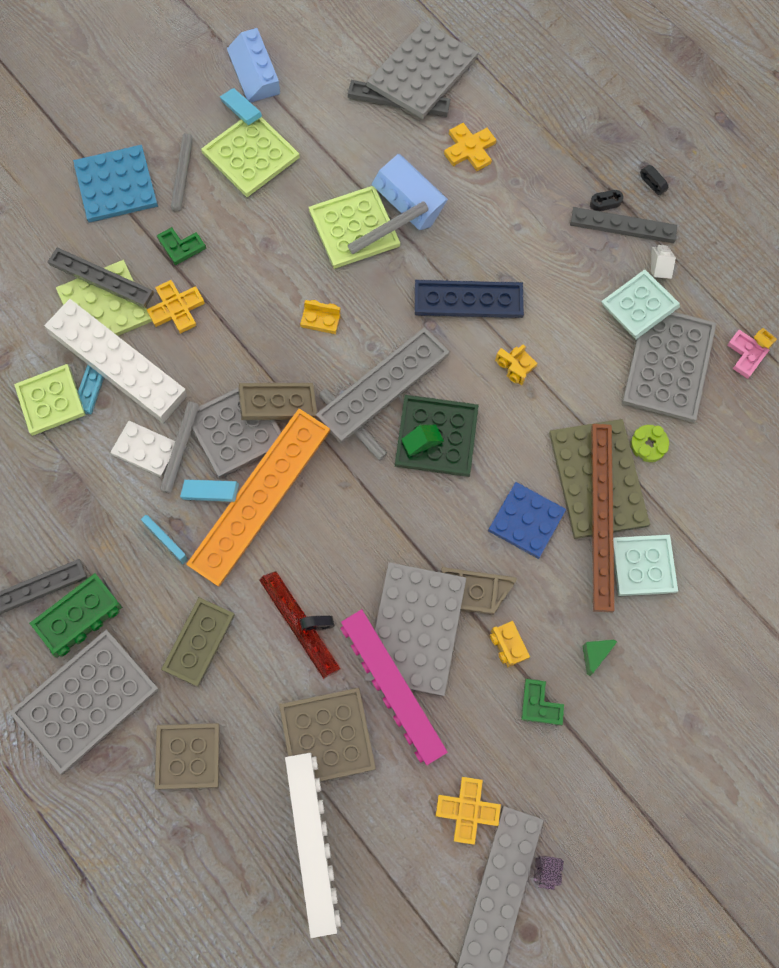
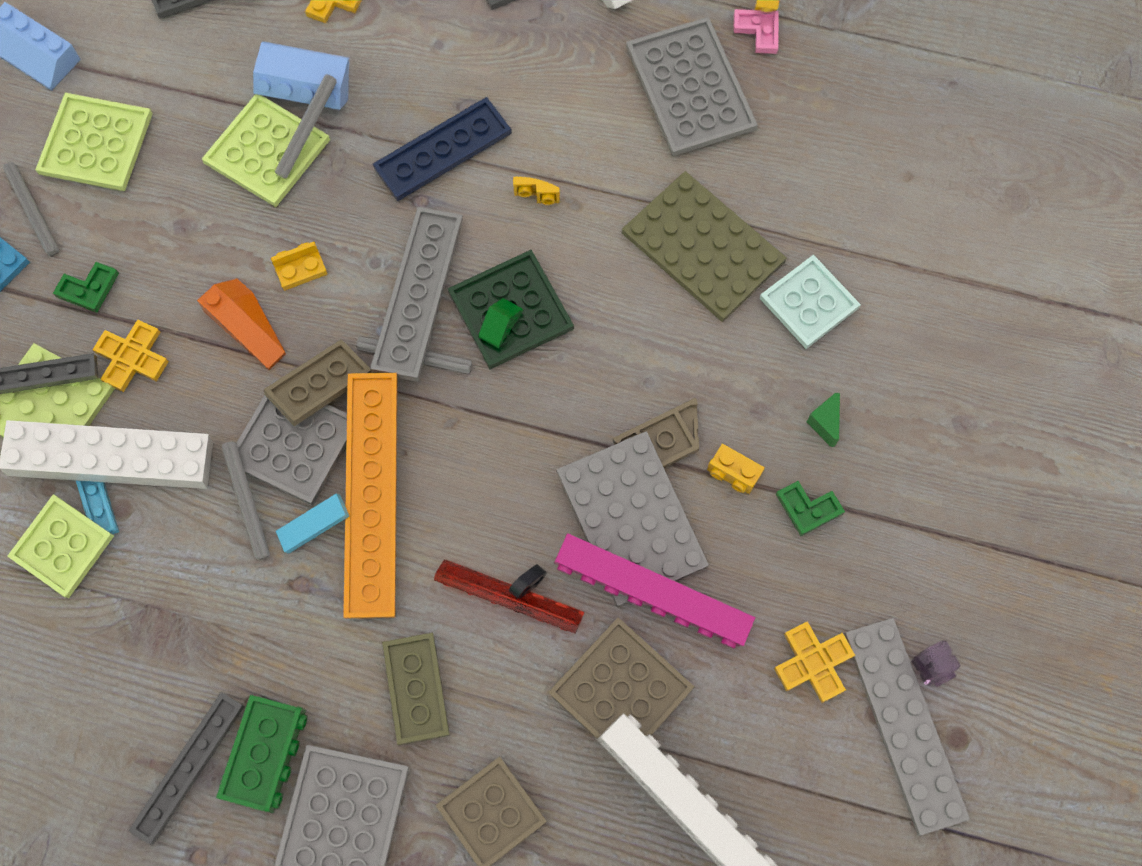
camera: 30 degrees left, 0 degrees up
(143, 448) = (206, 528): white plate -> none
(164, 539) = (300, 607): medium azure tile -> none
(241, 106) = (47, 97): medium azure tile -> none
(261, 325) = (242, 317): none -> orange wedge
(523, 358) = (543, 173): yellow bracket -> none
(527, 520) = (663, 334): blue plate -> none
(602, 518) = (738, 281): dark orange plate -> none
(640, 304) = (621, 44): light aqua plate -> none
(652, 433) = (728, 166): lime plate -> none

